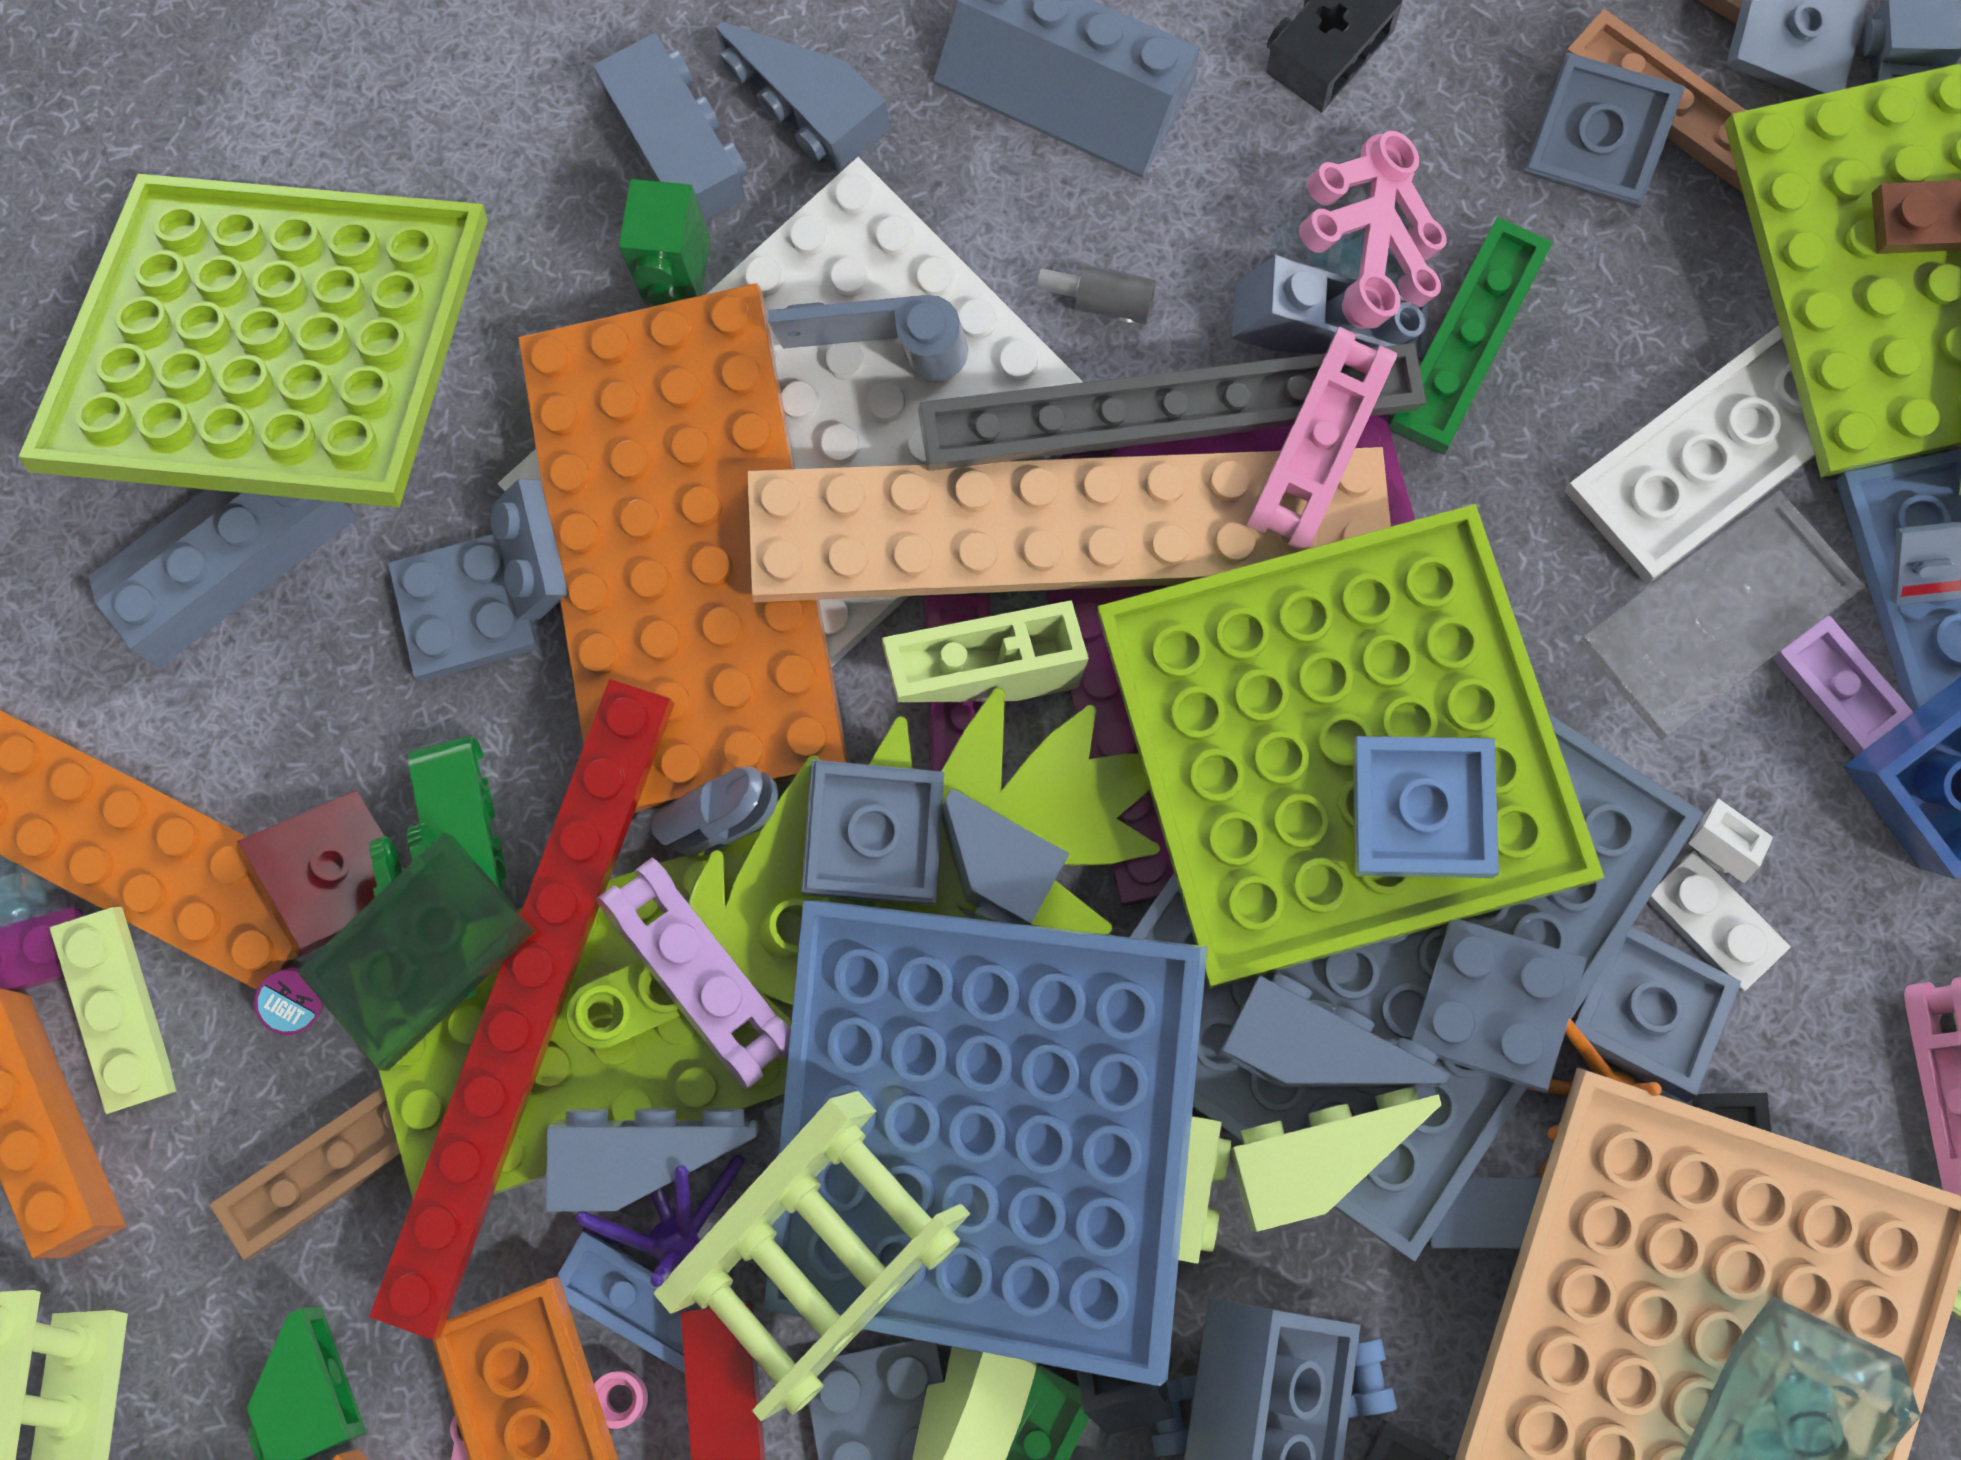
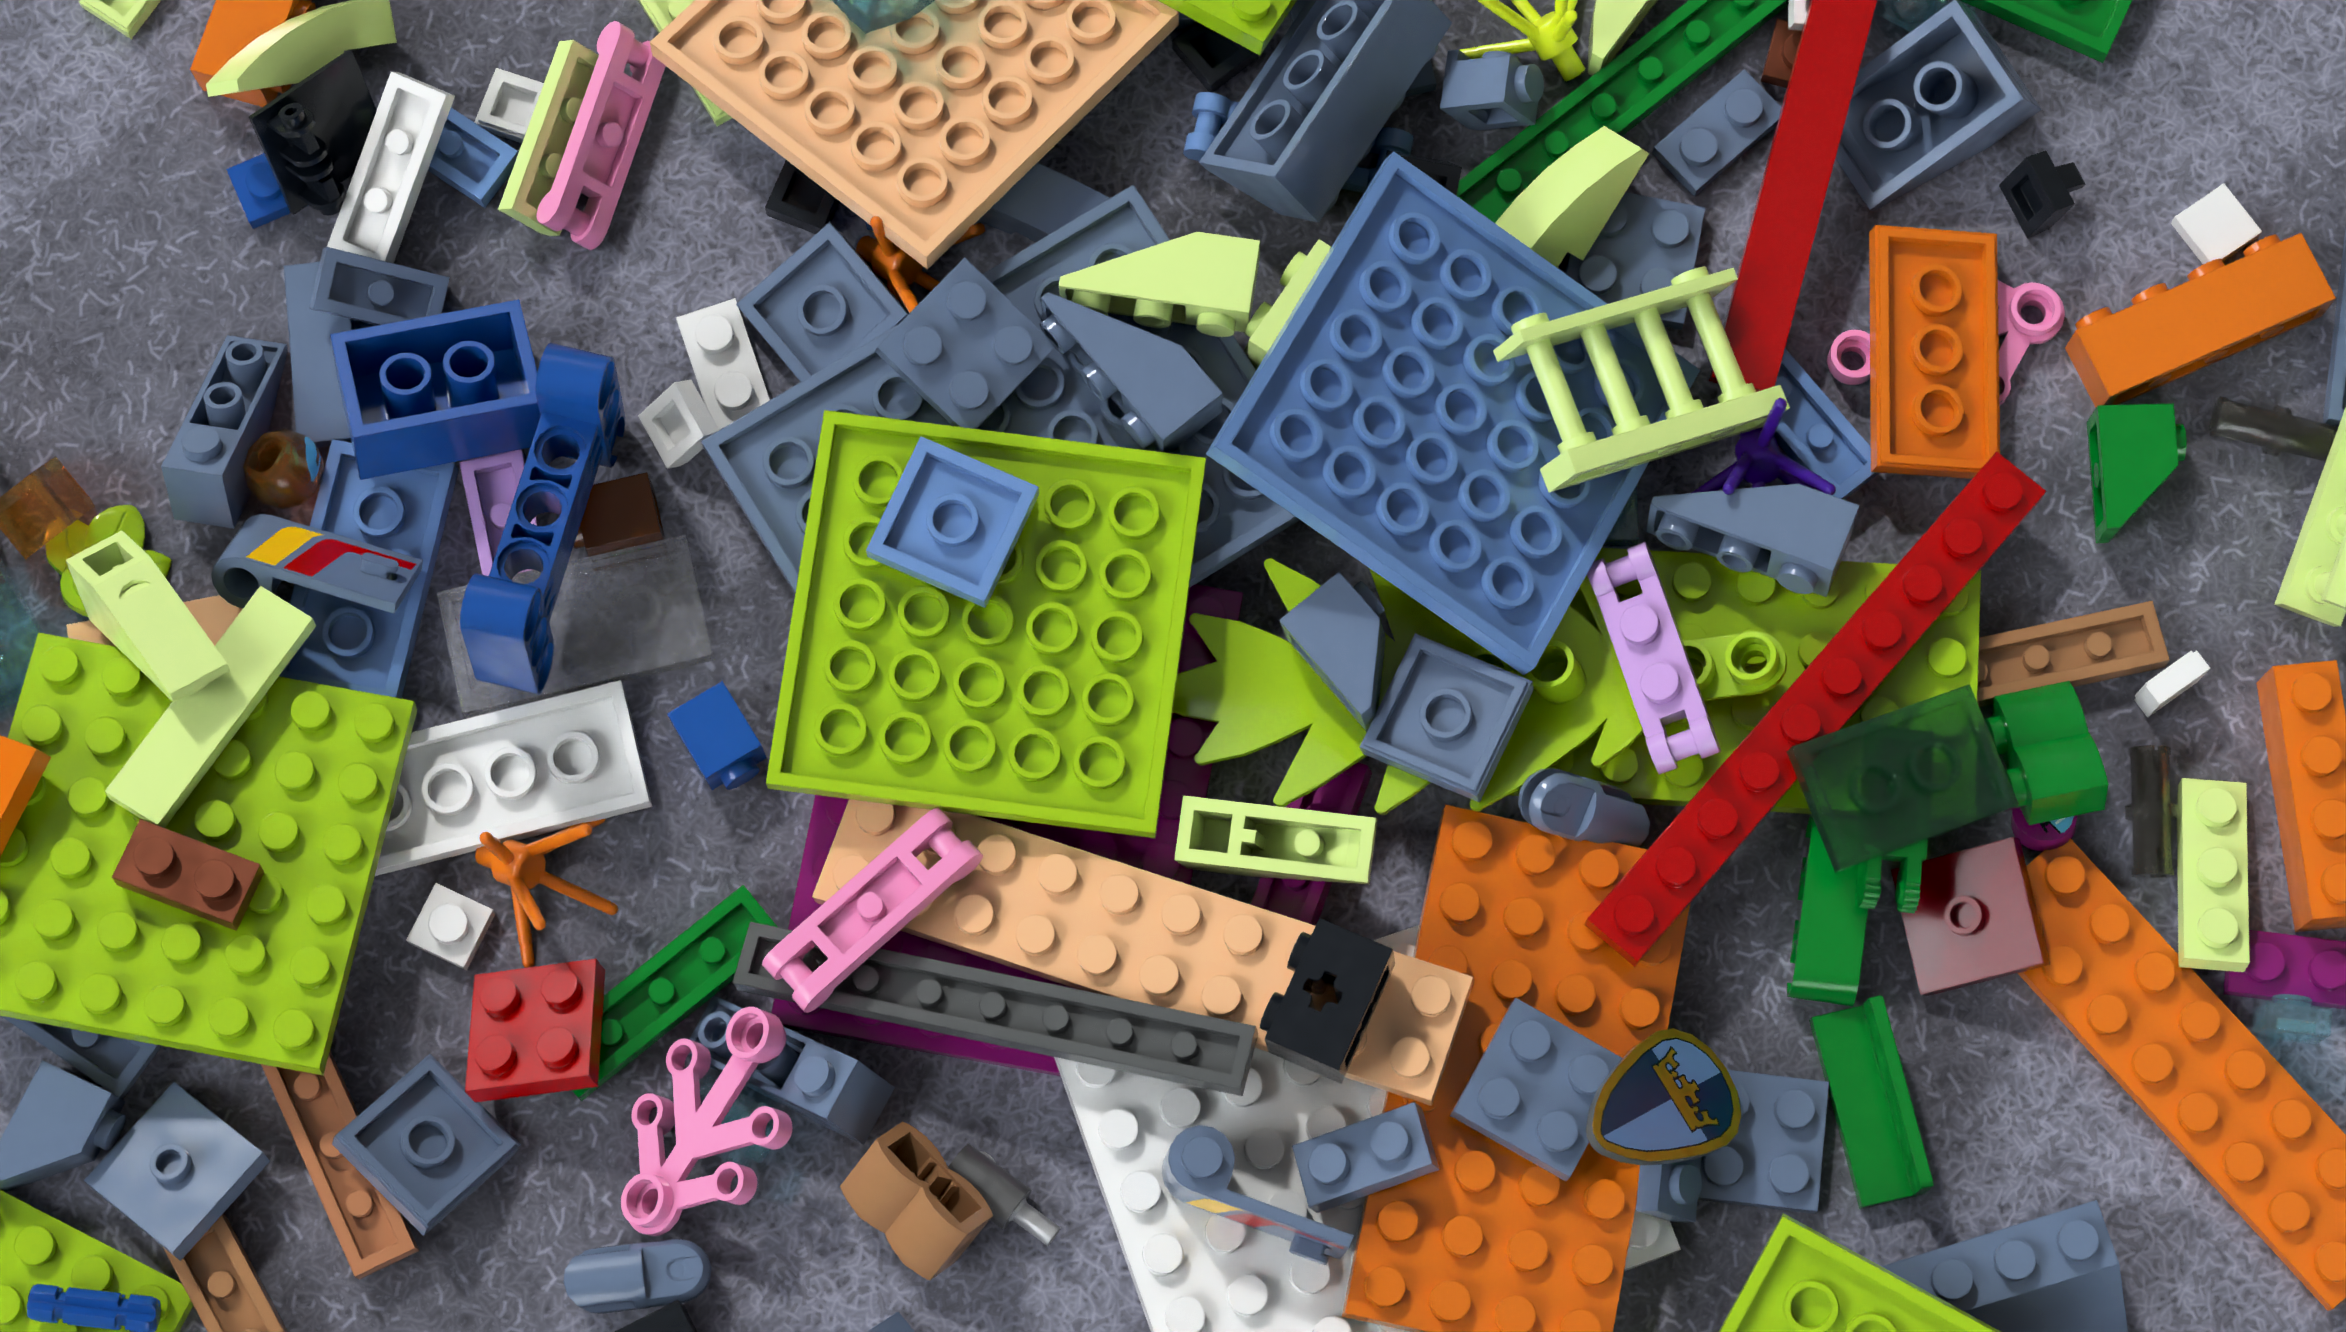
camera: 165 degrees left, 0 degrees up
(189, 1048) = (2151, 811): none -> clear smoke pin
(200, 1181) = (2171, 682): none -> white tile
(298, 1058) = (2048, 752): none -> green brick
(369, 674) = (1871, 1104): none -> green panel
(539, 558) = (1664, 1103): none -> shield
(657, 533) = (1536, 1089): none -> sand blue plate
(788, 410) = (1365, 1157): none -> sand blue plate
(866, 465) = (1327, 1038): none -> black brick
(1154, 241) = (916, 1200): none -> medium nougat brick
(1373, 103) = (637, 1275): none -> sand blue arm
(1540, 563) = (718, 738): none -> blue brick
(1562, 250) = (535, 1030): none -> plate
(1649, 382) = (524, 867): none -> orange plant
(1682, 318) = (451, 926): none -> white plate
(1738, 724) = (620, 516): none -> reddish brown brick
(1795, 540) = (579, 419): none -> blue beam

